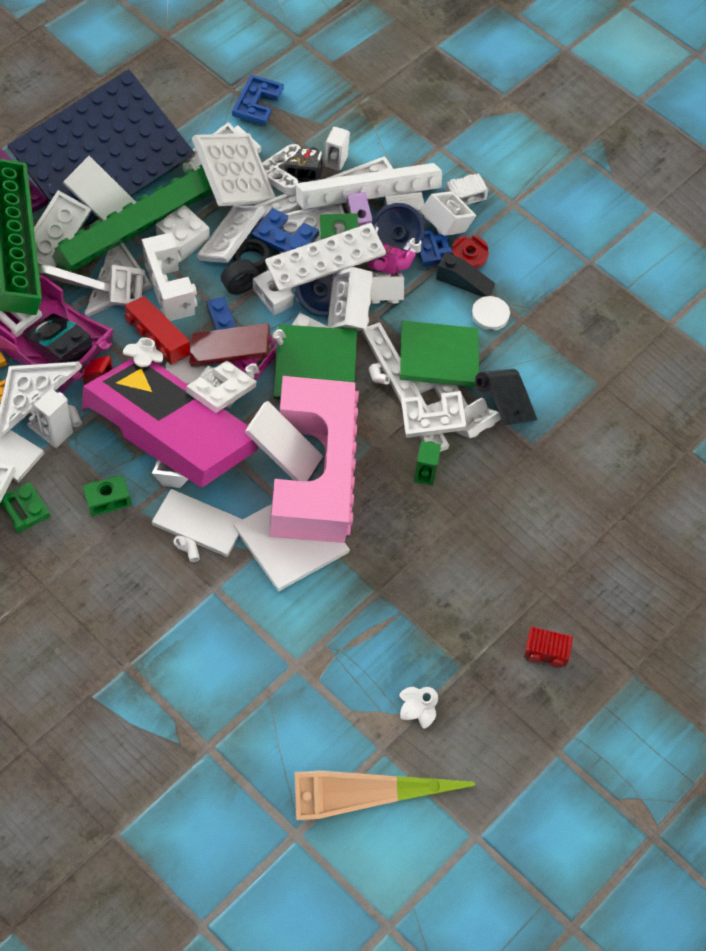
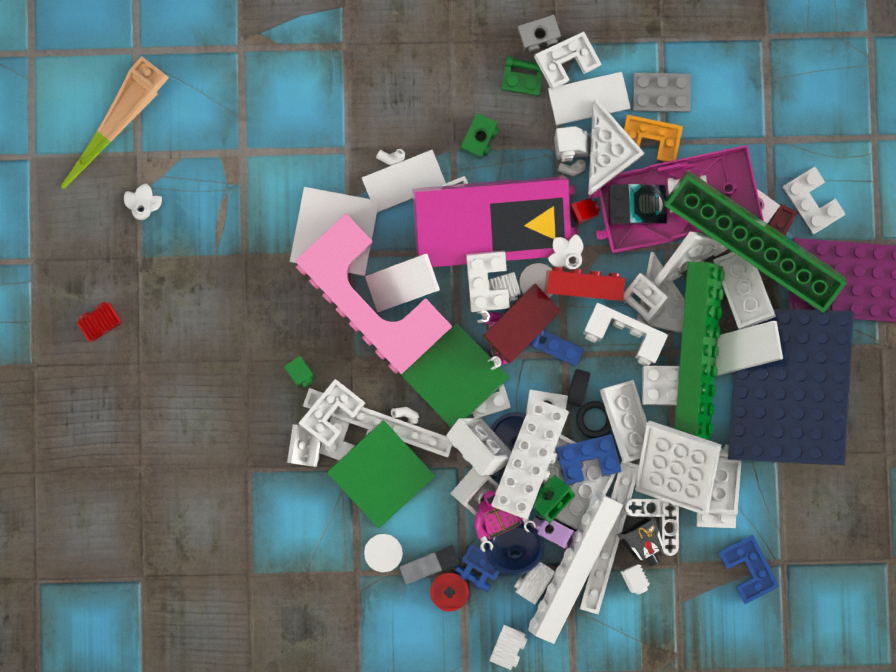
camera: 140 degrees right, 25 degrees up
(448, 213) = (493, 603): white brick -> none
(508, 395) = (299, 485): black door -> none

